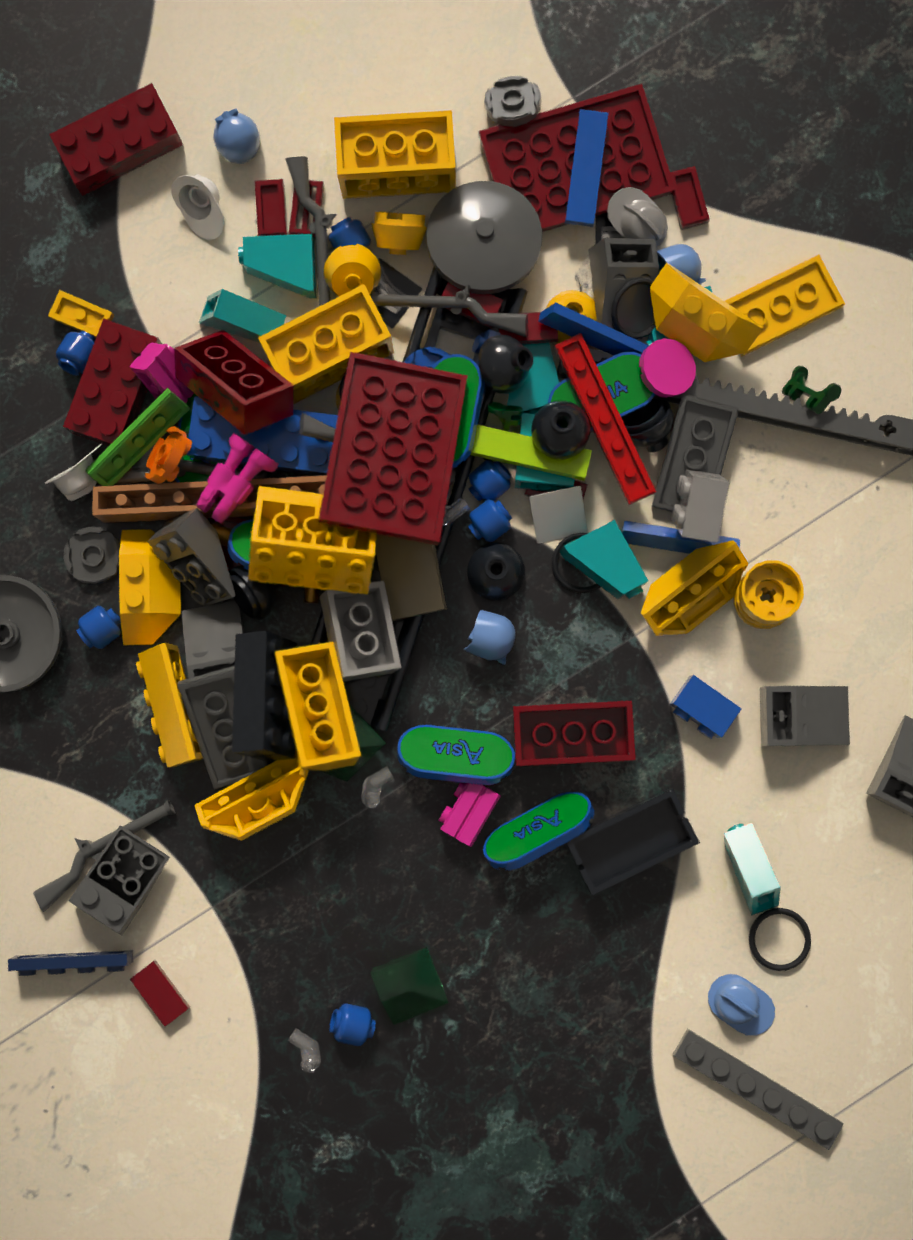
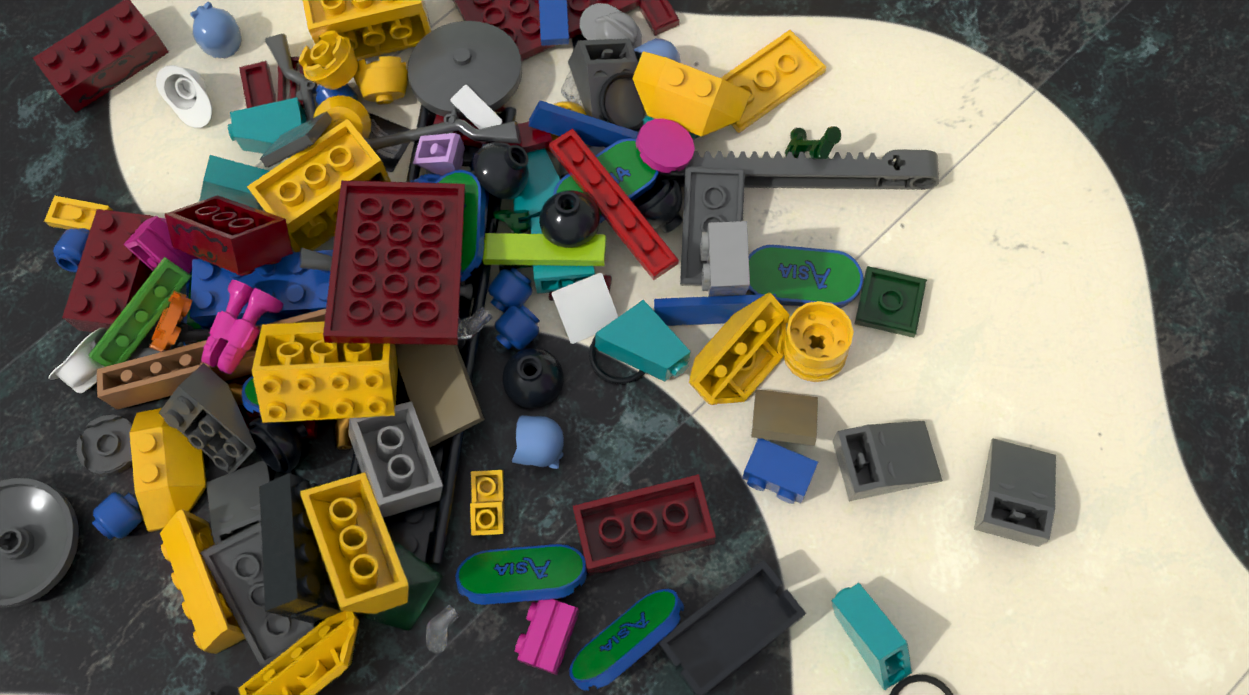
camera: 10 degrees left, 15 degrees down
(310, 292) = (296, 139): none -> dark grey tile
(352, 208) = (329, 61): none -> yellow cone
(434, 681) = (487, 502): none -> yellow slope
(445, 331) = (440, 153): none -> lavender slope
(488, 289) = (475, 108): none -> white sticker
(721, 659) = (785, 417): none -> dark tan tile
(773, 522) = (804, 275): none -> green tile
(846, 564) = (890, 301): none -> dark green tile

